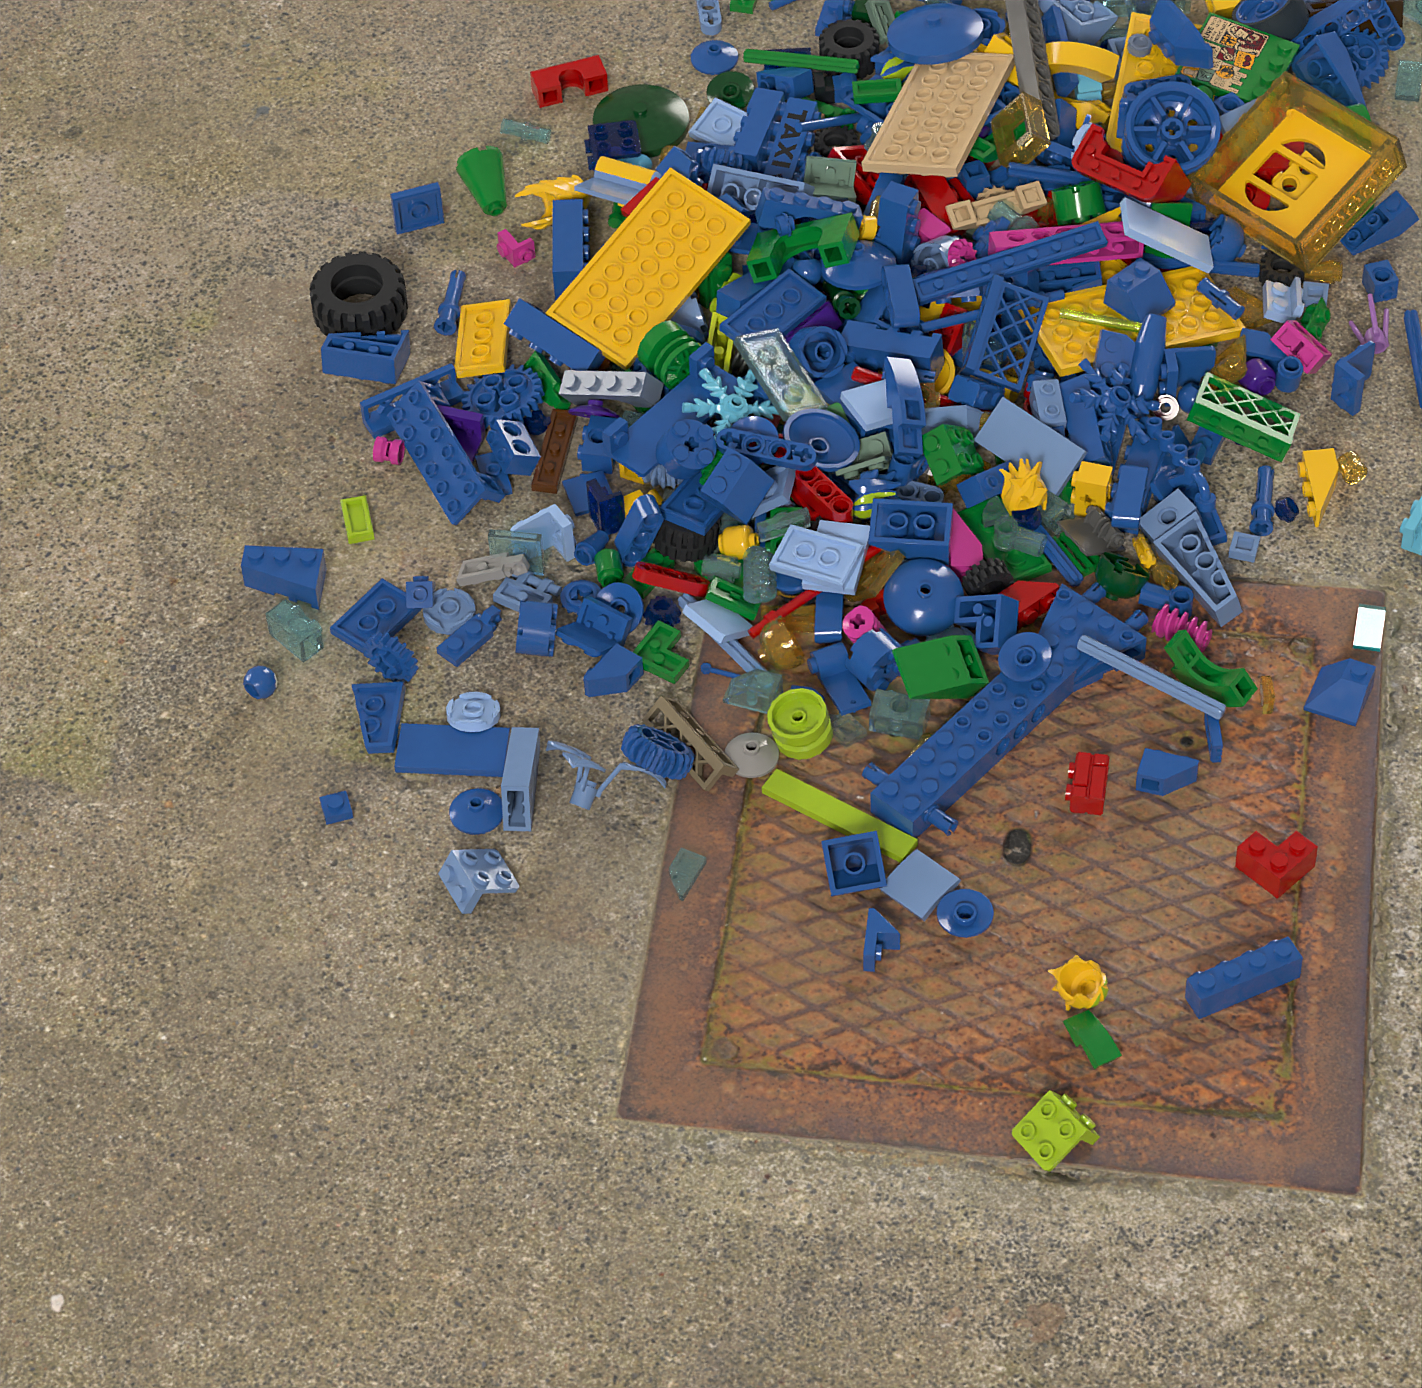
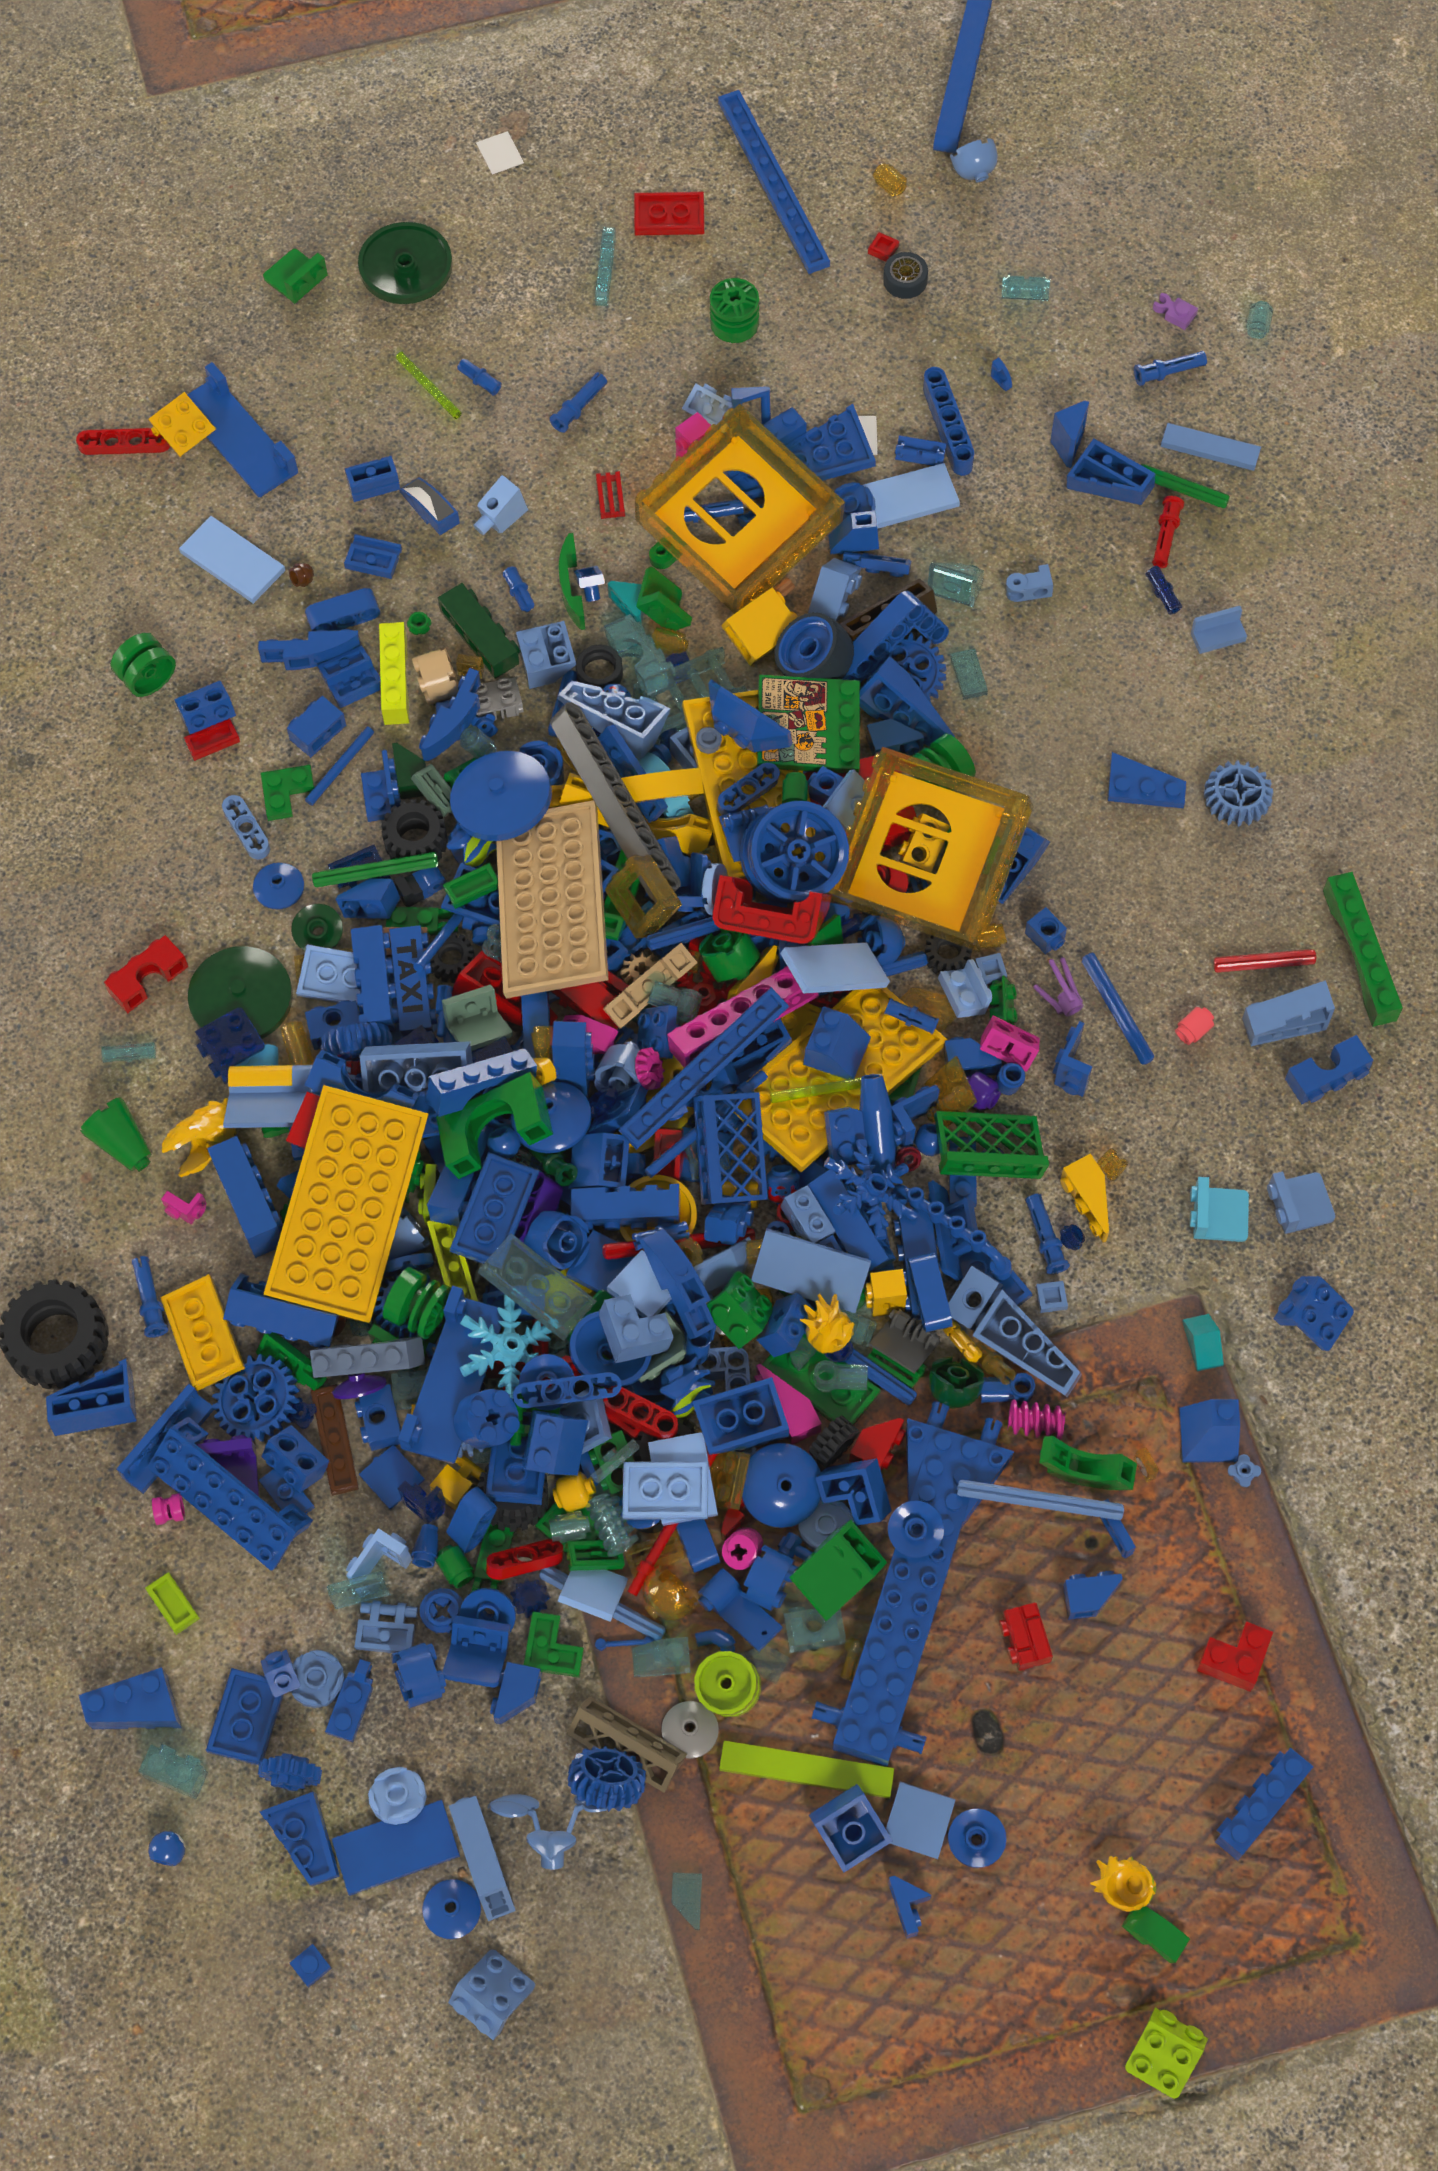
camera: 25 degrees left, 15 degrees up
(417, 208) = (64, 1199): blue tile -> none
(491, 568) = (339, 1617): light grey hinge -> none
(784, 224) = (466, 1108): blue plate -> none
(845, 432) = (631, 1336): none -> medium blue brick
(900, 296) = (617, 1151): blue beam -> none
(1357, 737) = (1244, 1479): none -> medium blue plate

